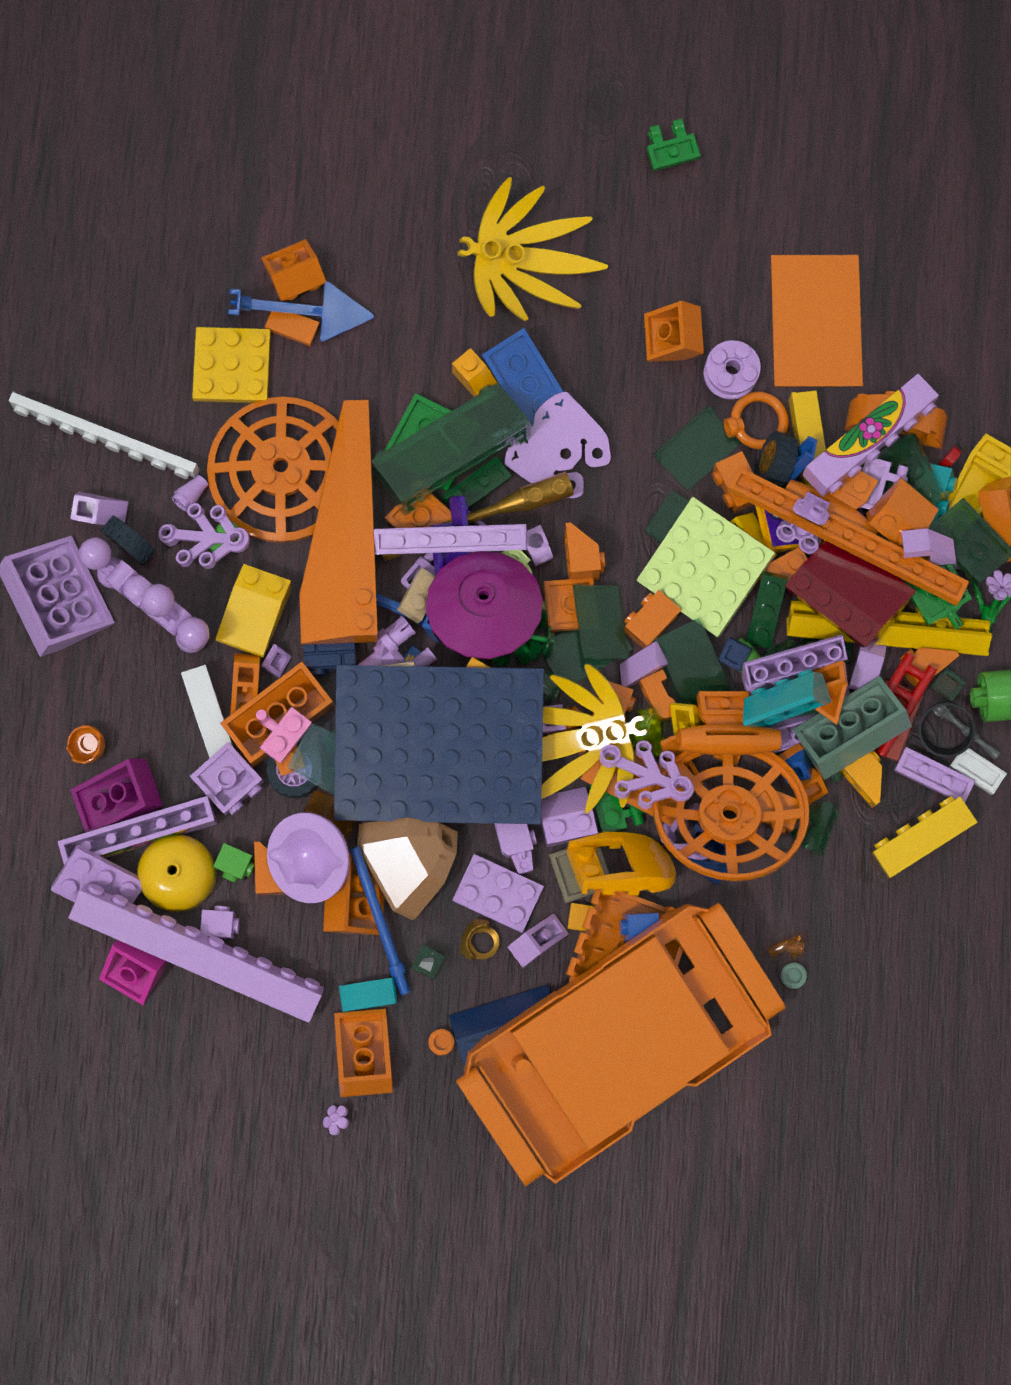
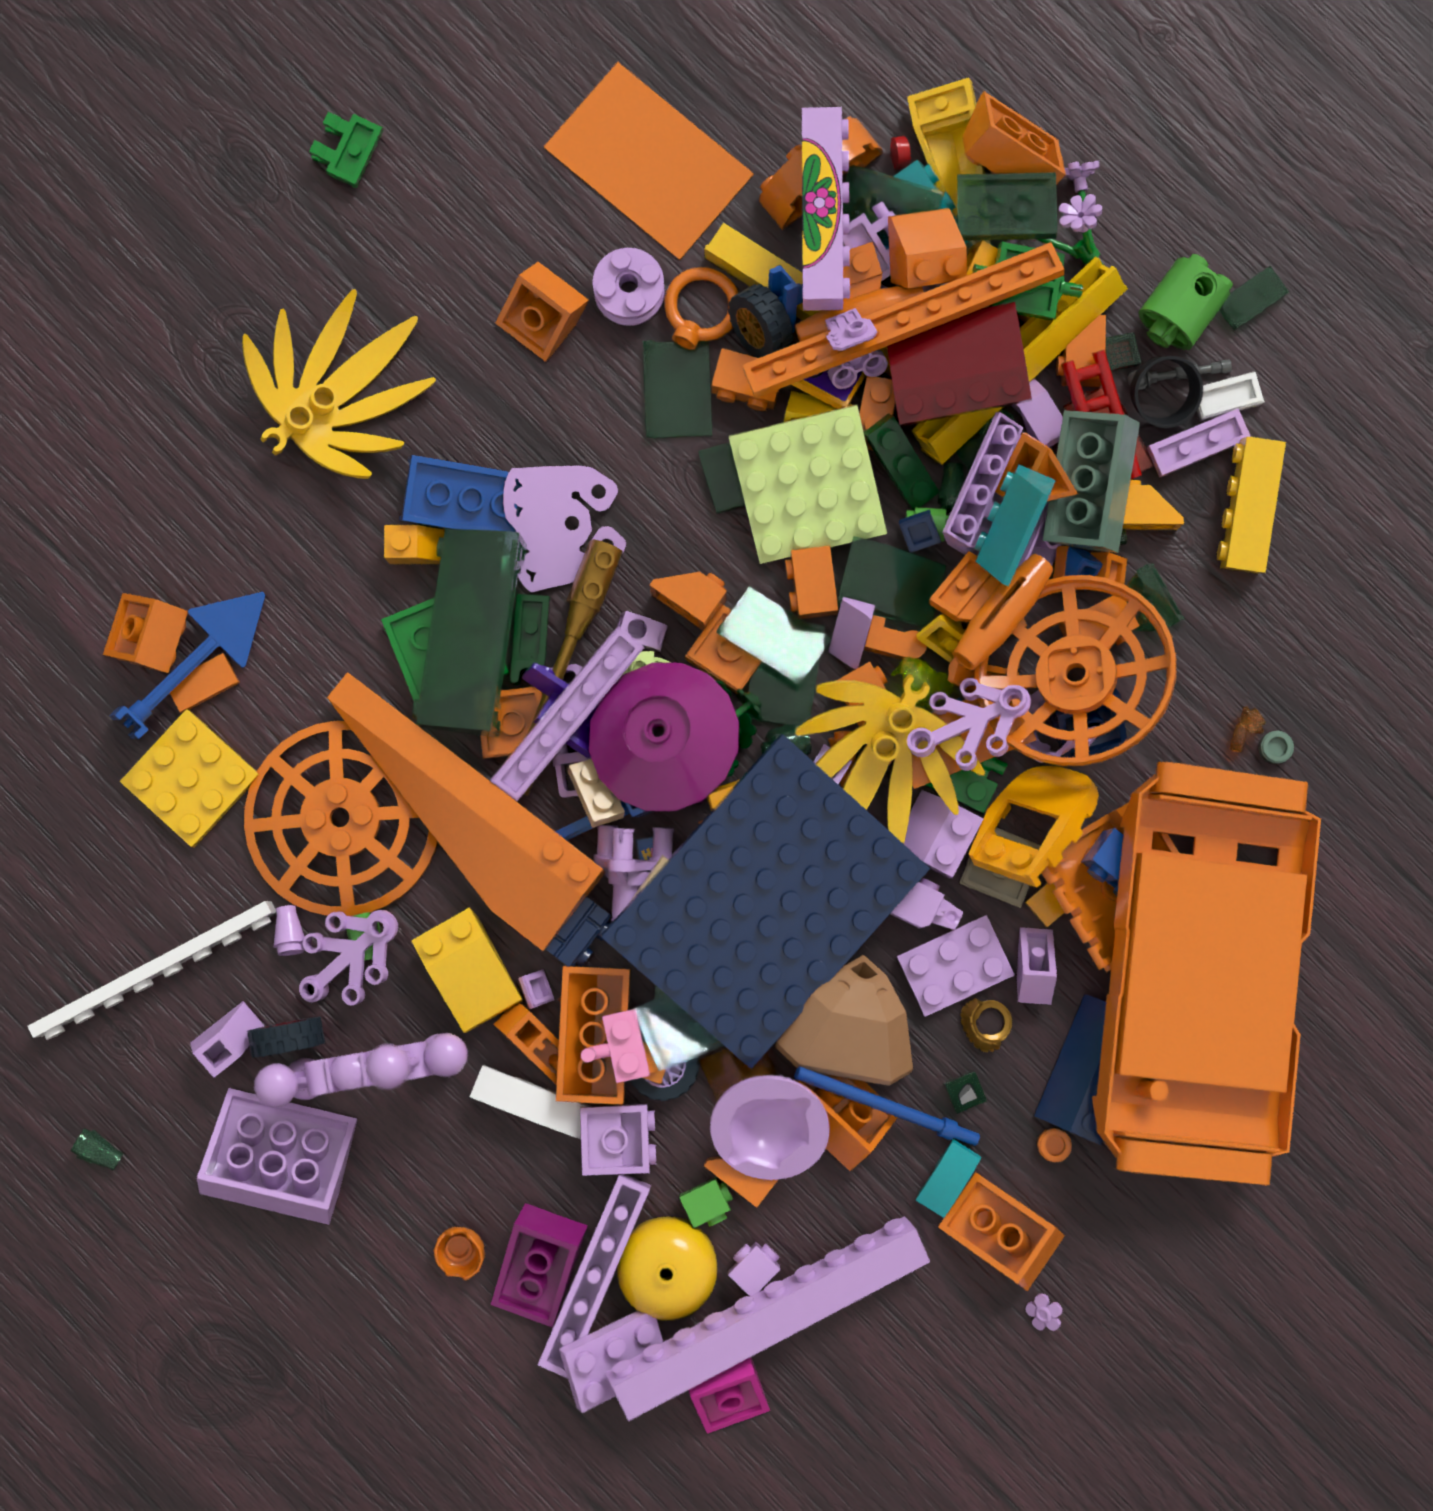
camera: 45 degrees left, 5 degrees up
(928, 543) = (980, 248): lavender slope -> none

